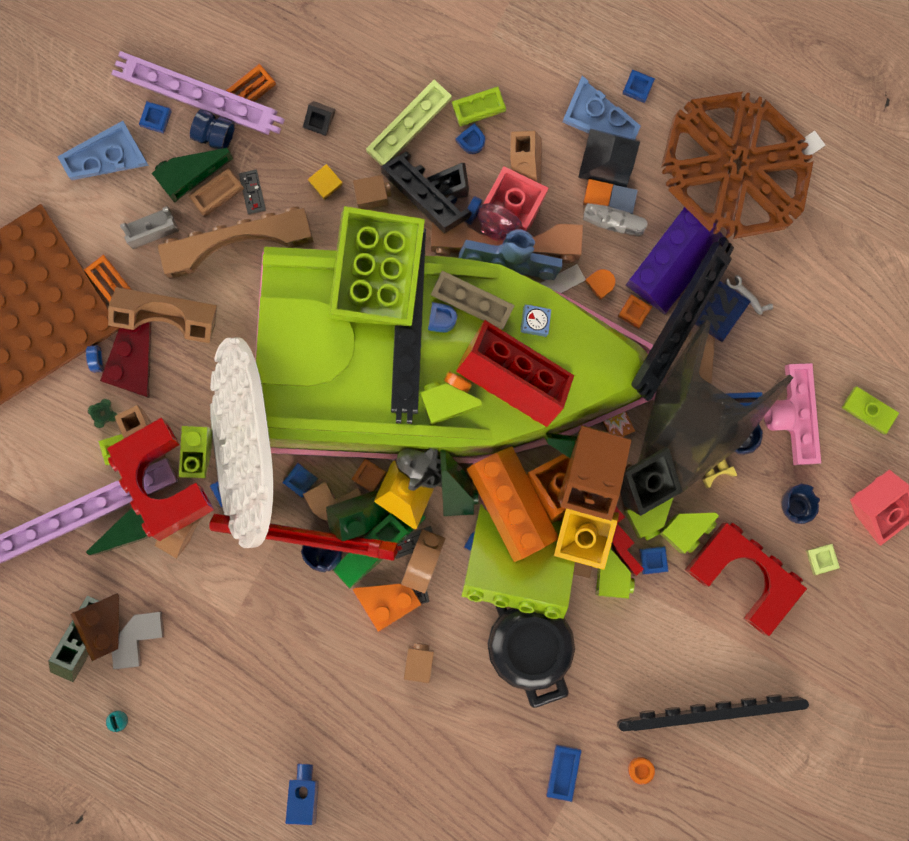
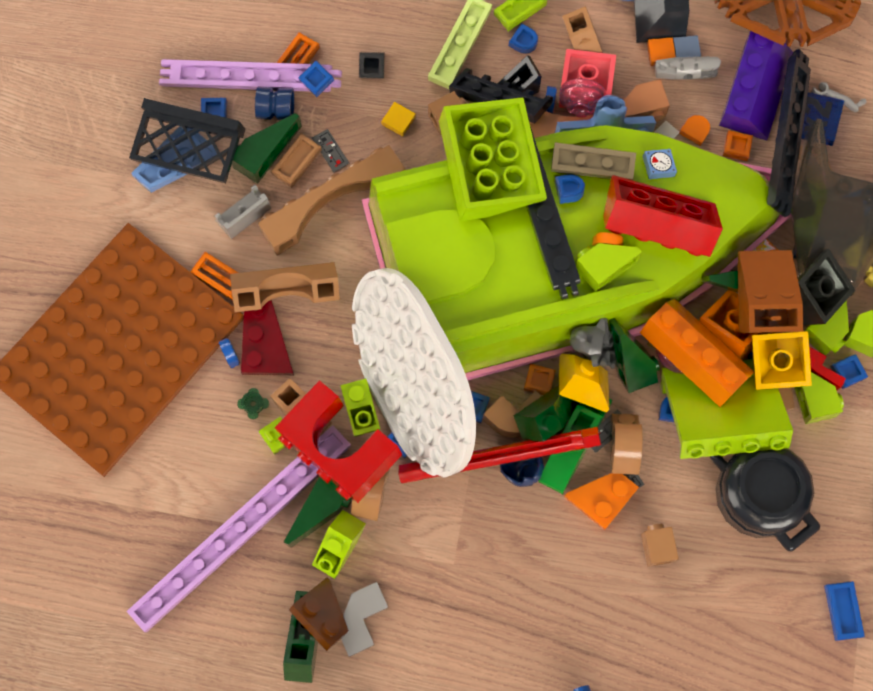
camera: 10 degrees left, 10 degrees down
(123, 123) = (196, 121): none -> black fence
(136, 567) = (338, 543): none -> lime slope
(256, 120) = (316, 79): none -> blue tile

